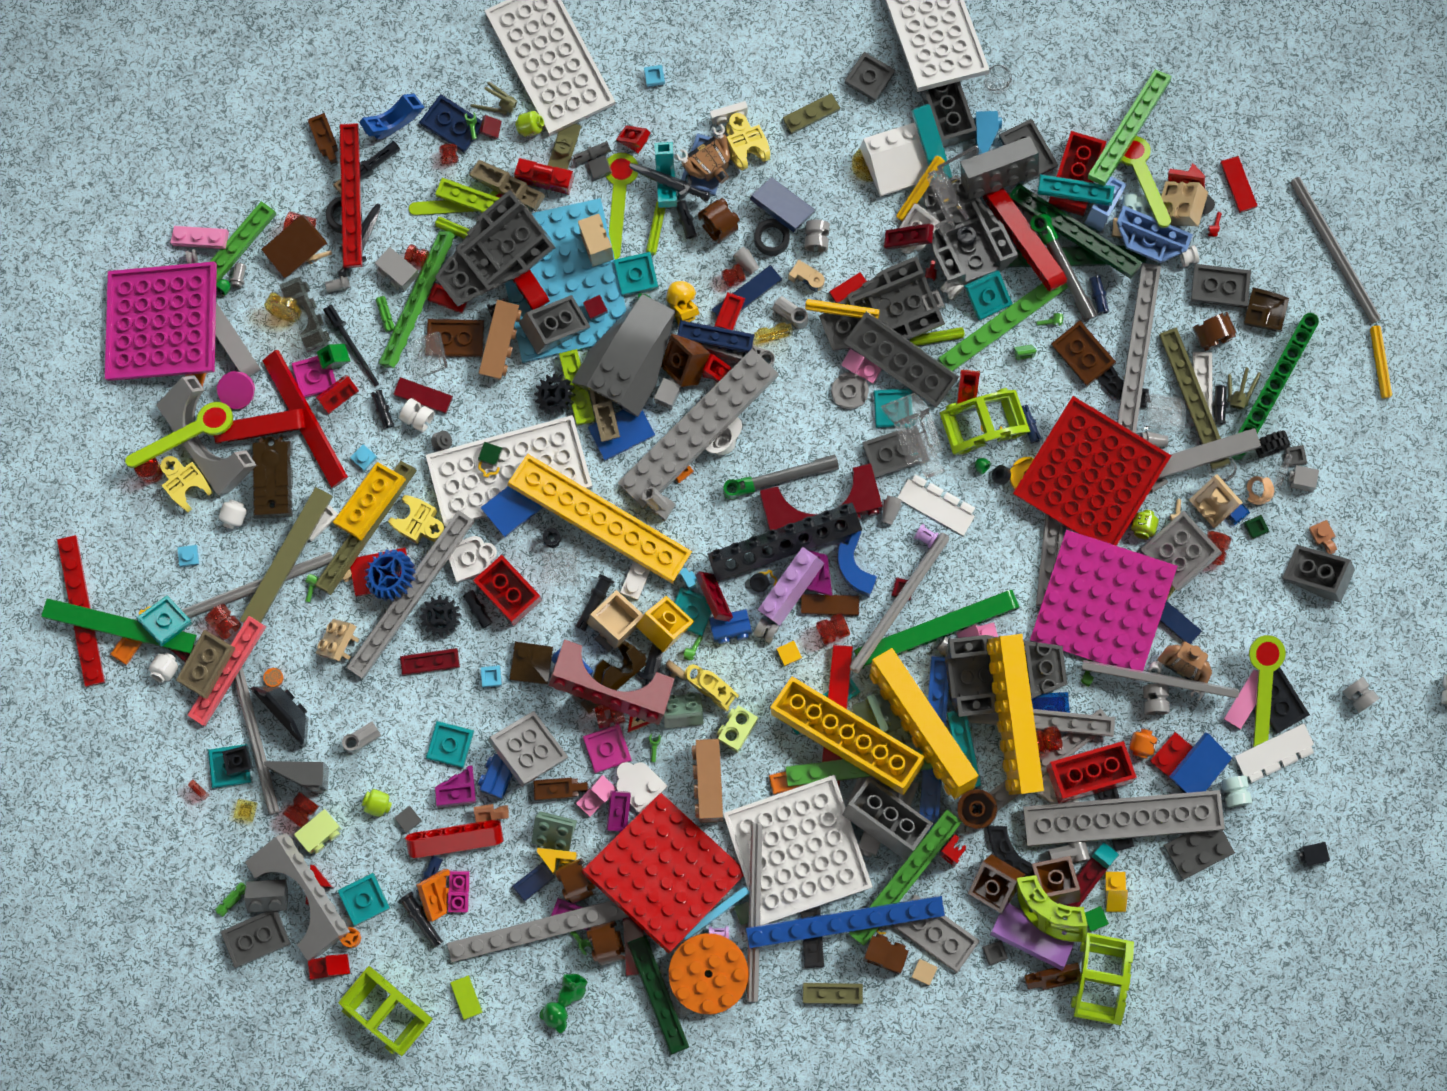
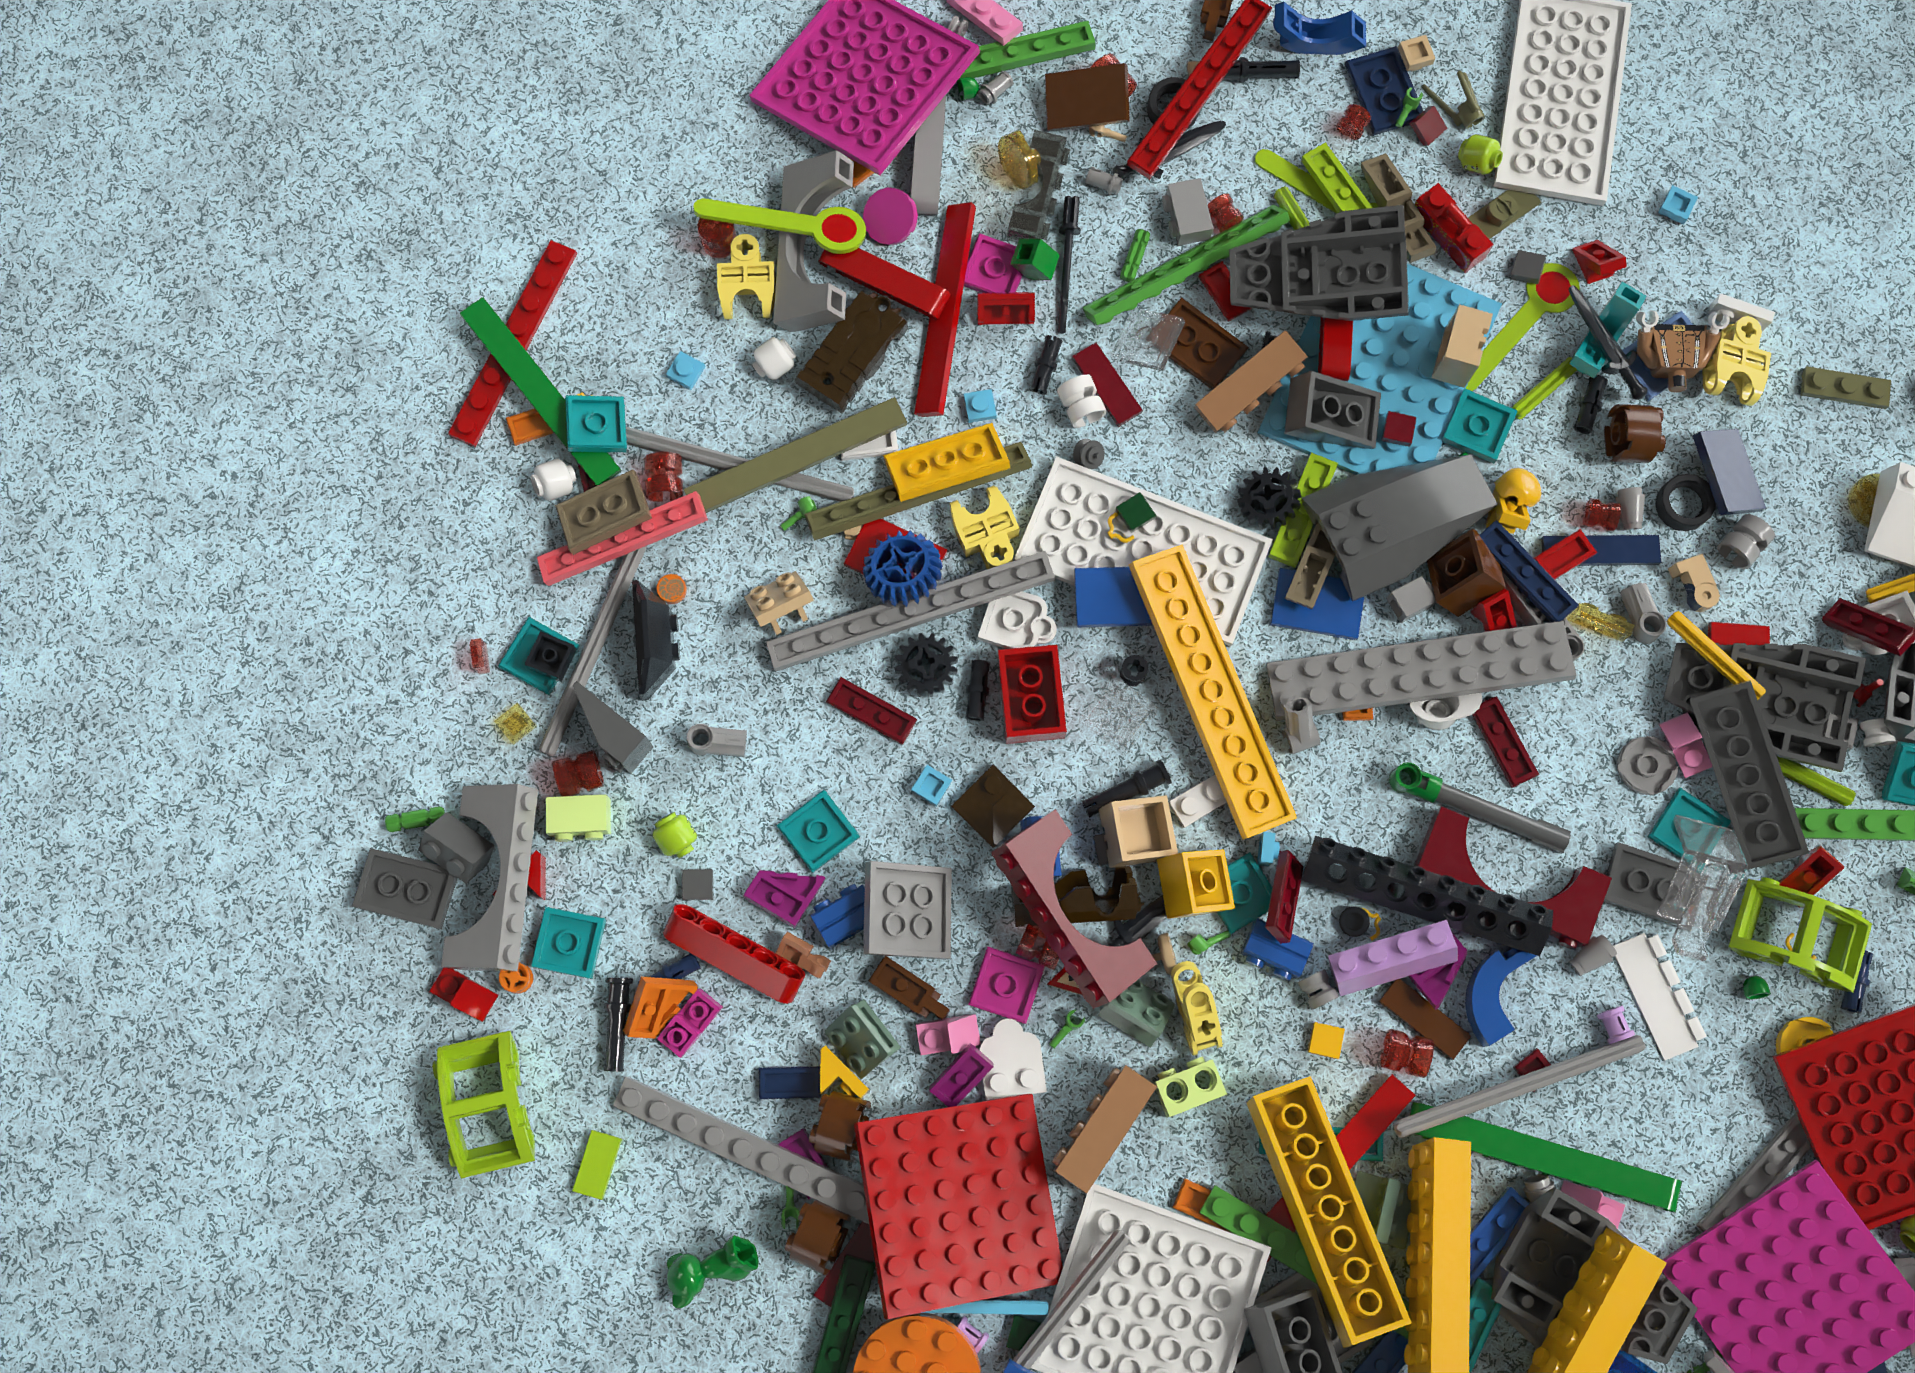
camera: 35 degrees right, 0 degrees up
(454, 91) = (1416, 53): none -> tan tile
(592, 153) = (1531, 242): dark grey pin -> none
(769, 432) = (1504, 742): none -> dark red tile
(1001, 474) = (1773, 1019): black tile -> none

